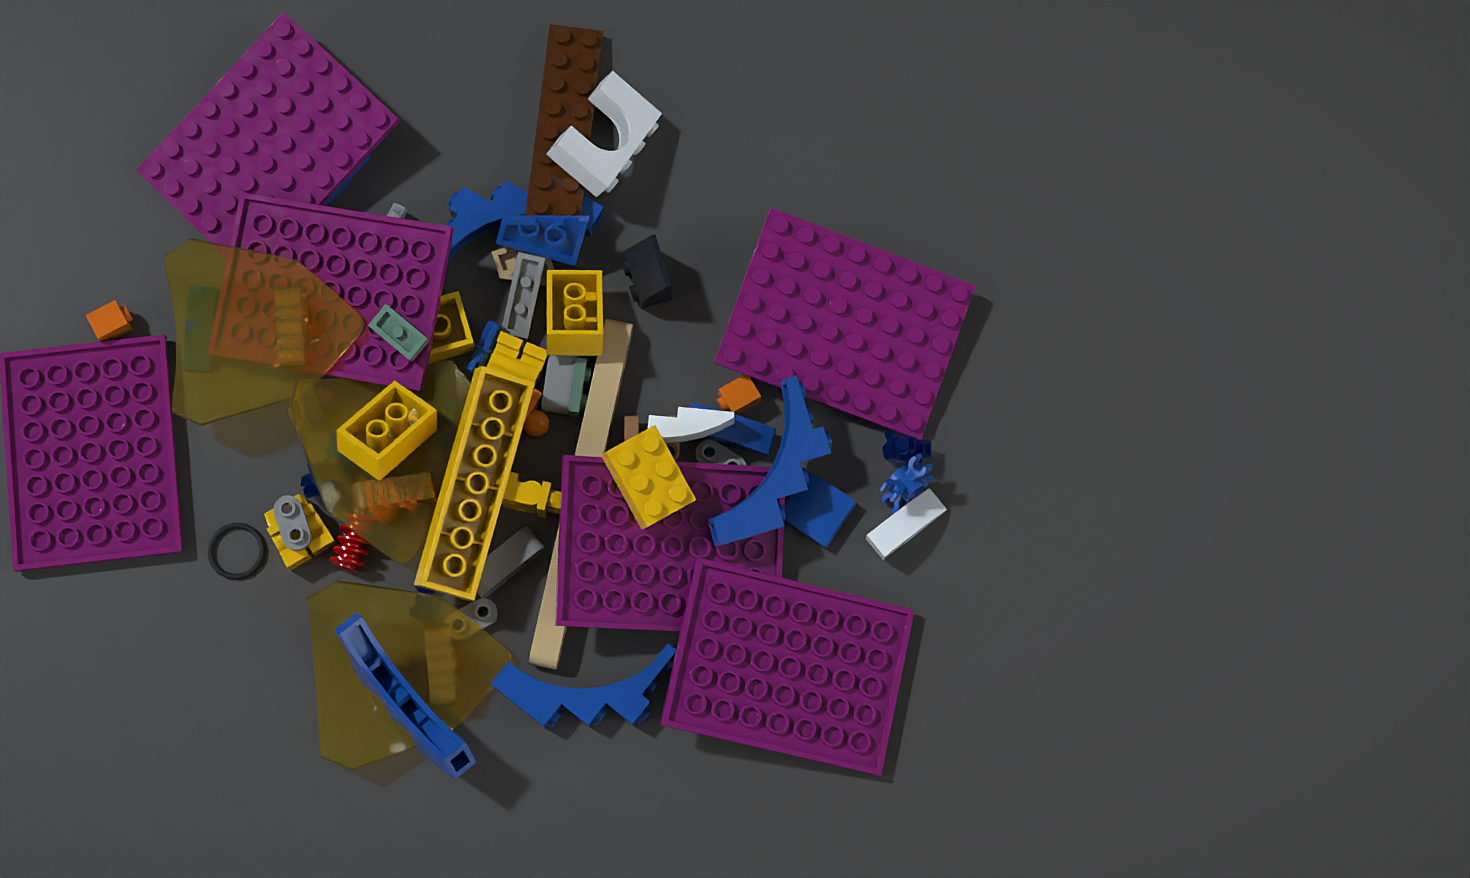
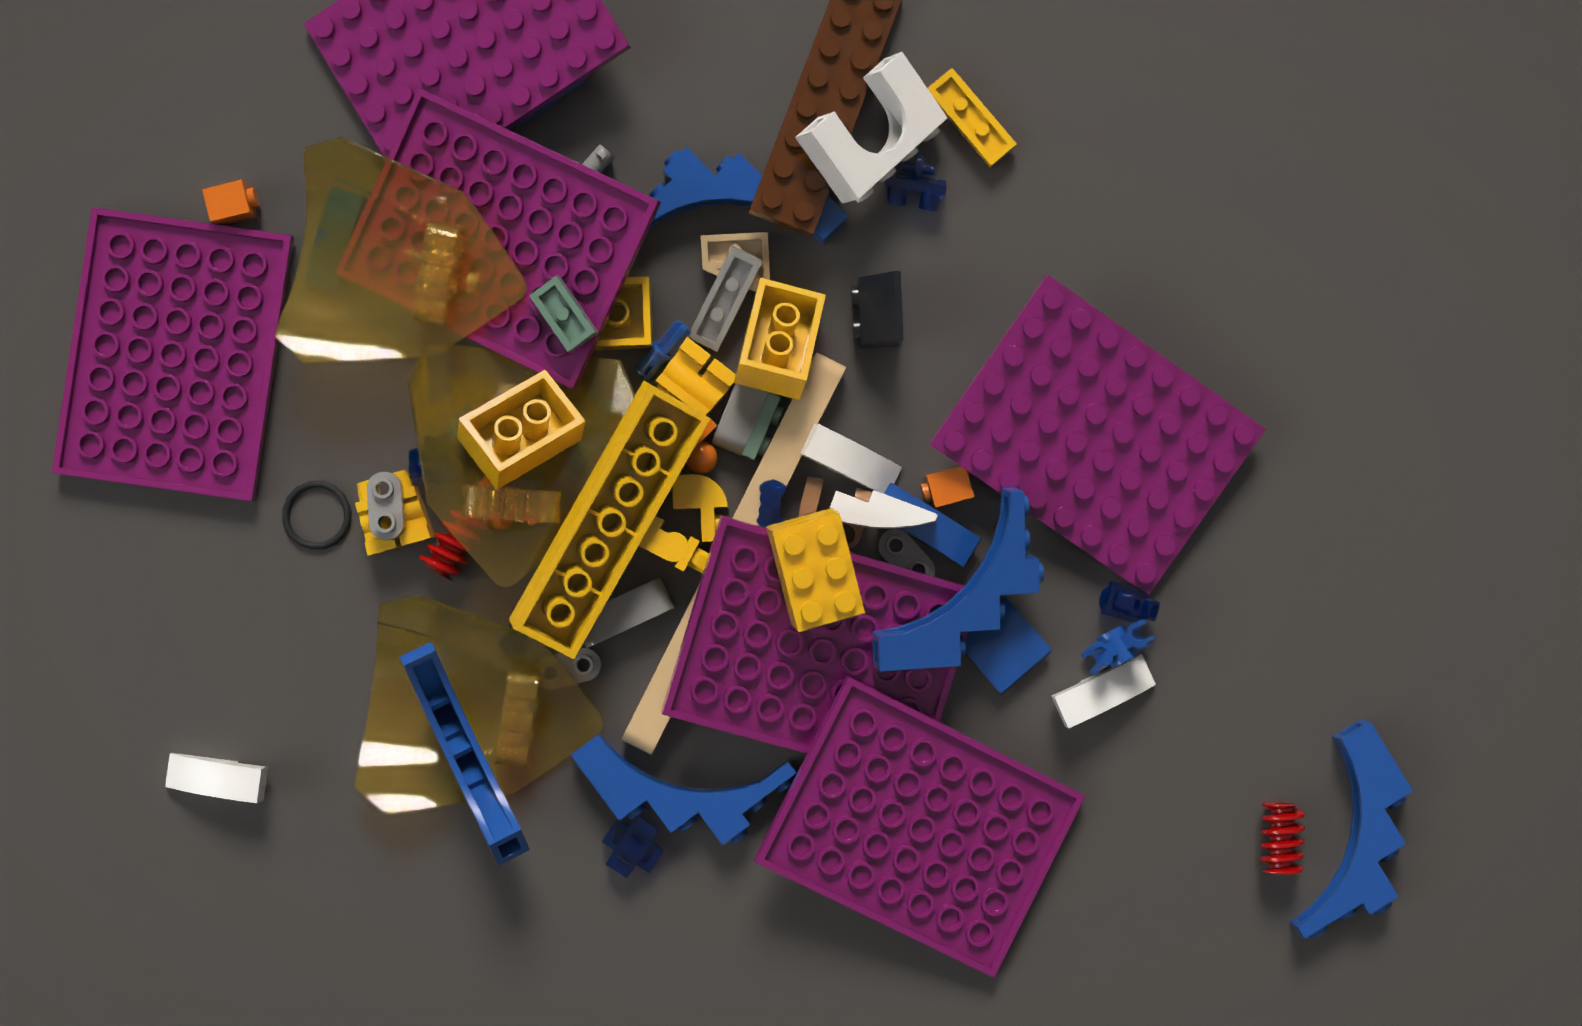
camera: 15 degrees right, 10 degrees up
(204, 781) = (216, 777): none -> white slope
(542, 452) = (701, 493): none -> yellow brick
(544, 235) = (768, 235): blue wing -> none
(559, 746) = (630, 848): none -> clear blue piece
(599, 434) = (770, 497): none -> clear blue piece
(653, 392) = (850, 459): none -> white slope
(663, 171) = (930, 188): none -> clear blue hips
(681, 110) = (971, 118): none -> yellow plate
(1080, 601) = (1283, 838): none -> red piece
(1153, 618) = (1373, 836): none -> blue arch

